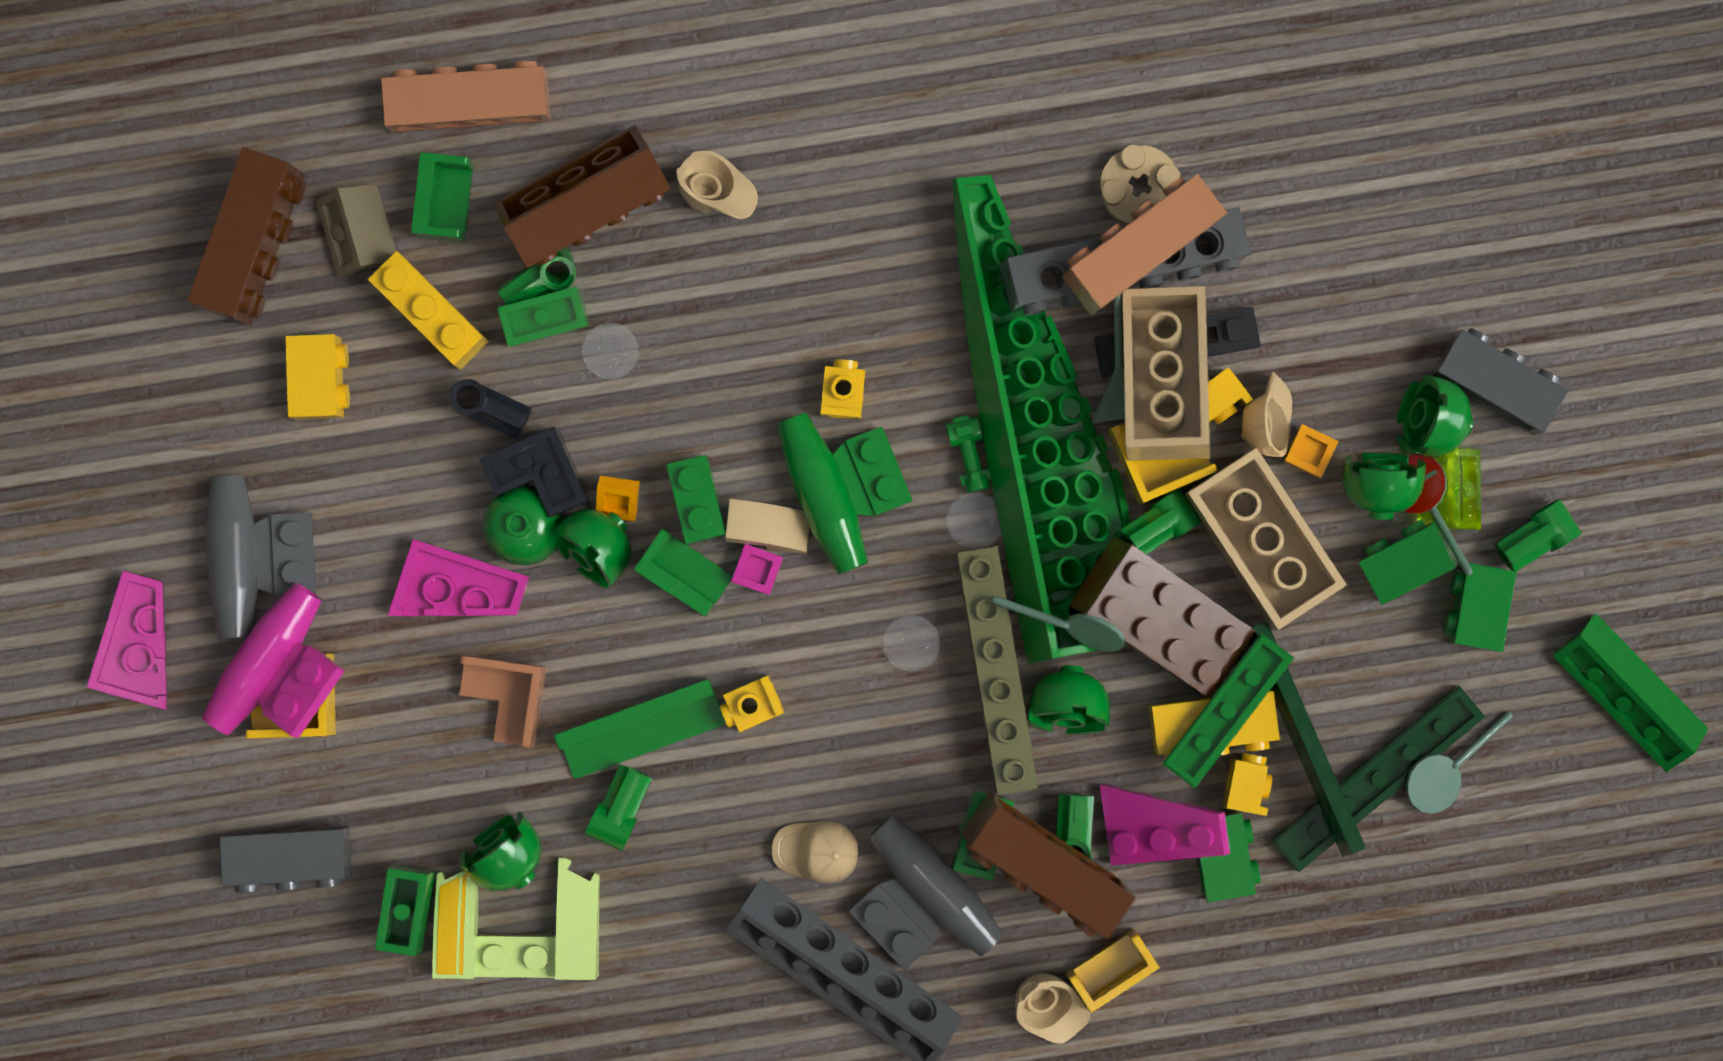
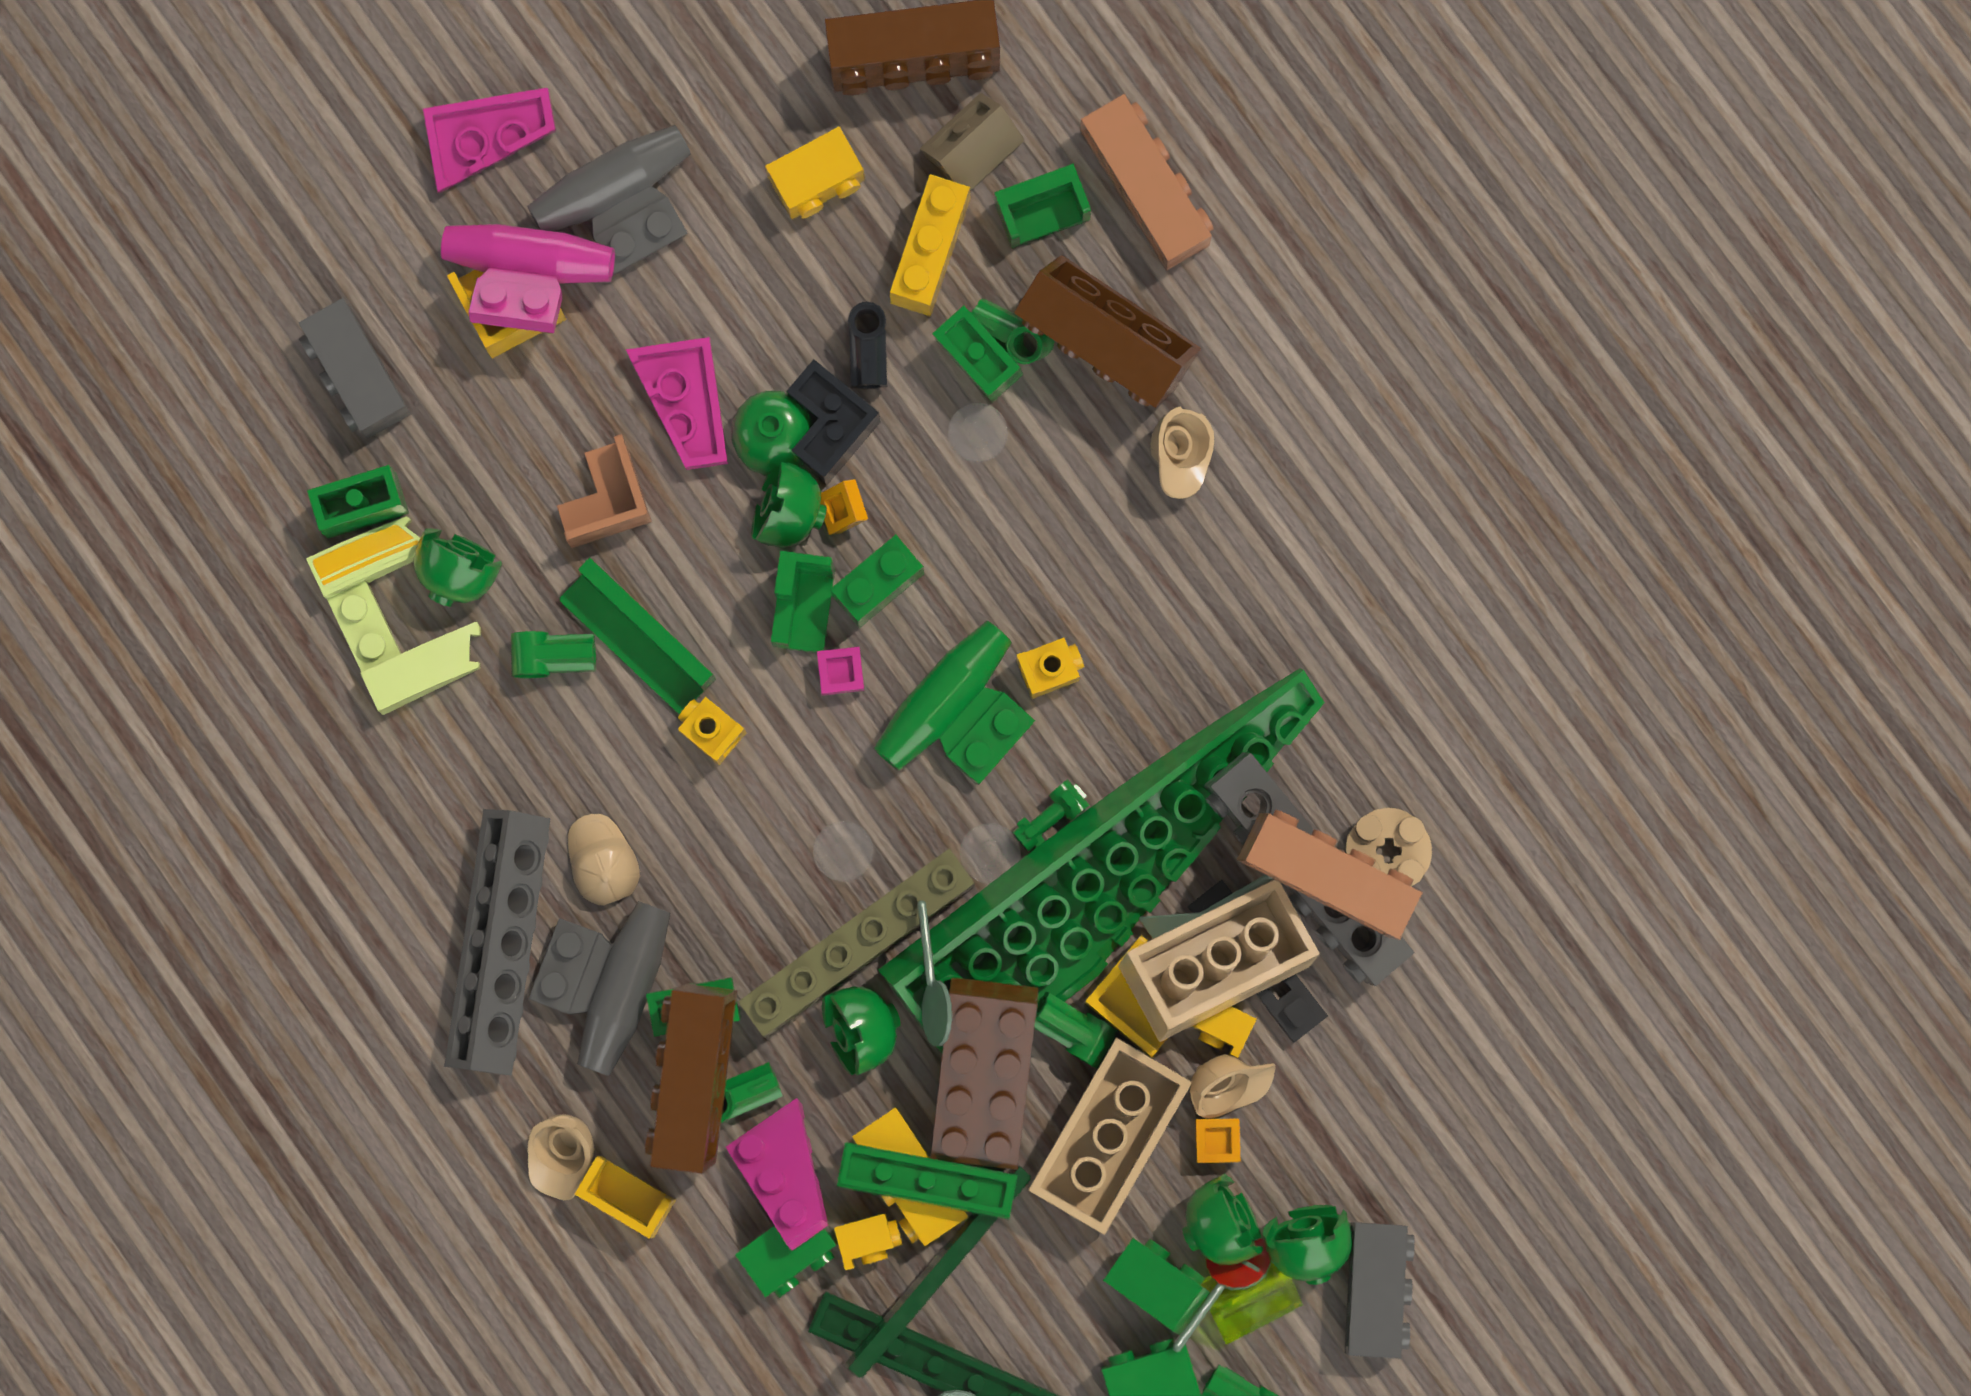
camera: 60 degrees right, 5 degrees down
(767, 526) = (886, 659): tan slope -> none

